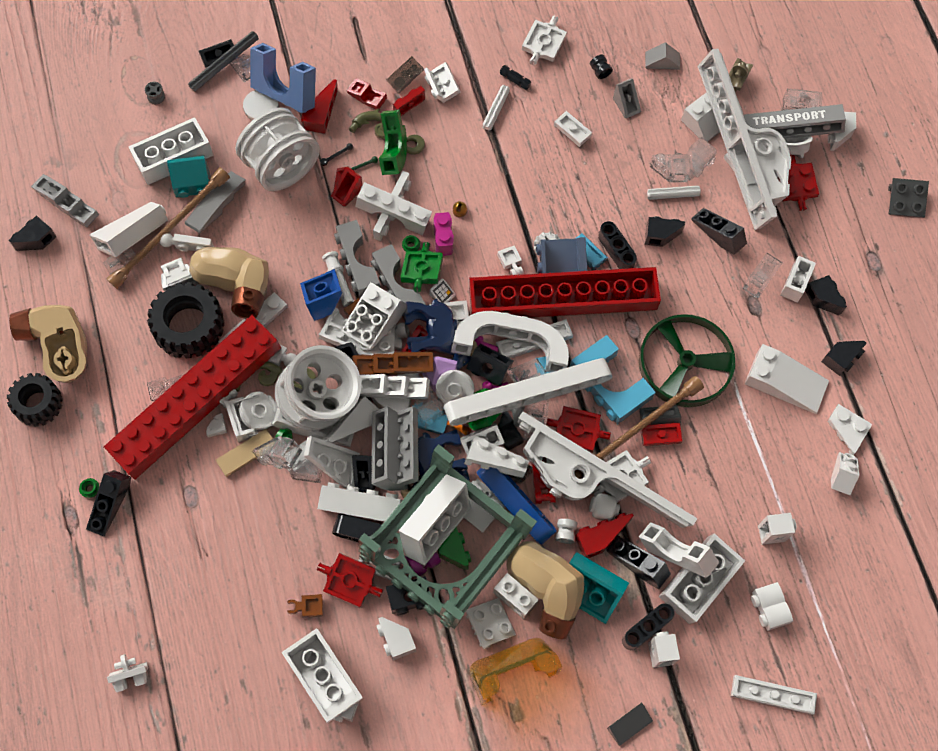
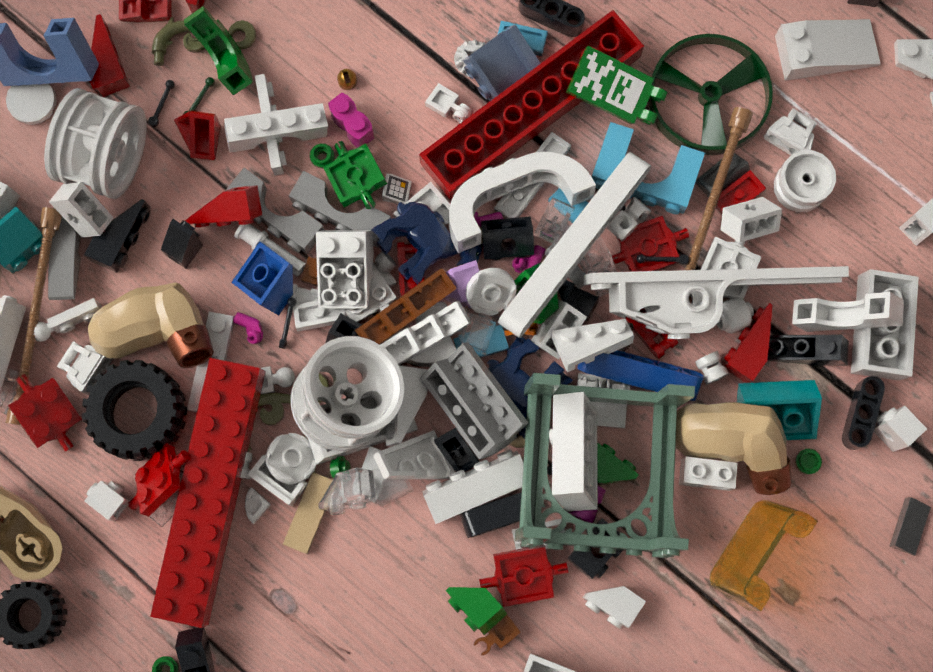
camera: 30 degrees left, 10 degrees up
(131, 363) = (107, 499): none -> white brick
(133, 287) = (44, 412): none -> red plate
(169, 368) = (158, 479): none -> red plate
(241, 182) = (81, 209): none -> white brick
(250, 214) = (114, 243): none -> black slope
(287, 240) = (181, 243): none -> black slope
(294, 317) = (252, 327): none -> dark pink arm
(305, 340) = (291, 302): none -> black hinge
(307, 578) = (479, 605): none -> green slope
(329, 235) = (235, 204): none -> red slope
(490, 623) = (701, 519): white hinge -> none
(570, 402) = (628, 219): none -> white leg
(589, 634) = (808, 461): none -> green plate
(594, 450) = (683, 259): none -> black hinge
(623, 314) = (614, 87): none -> green tile
(656, 452) = (751, 219): none -> white brick
(710, 452) = (804, 181): none -> white wheel
(722, 419) = (791, 136): none -> white piece

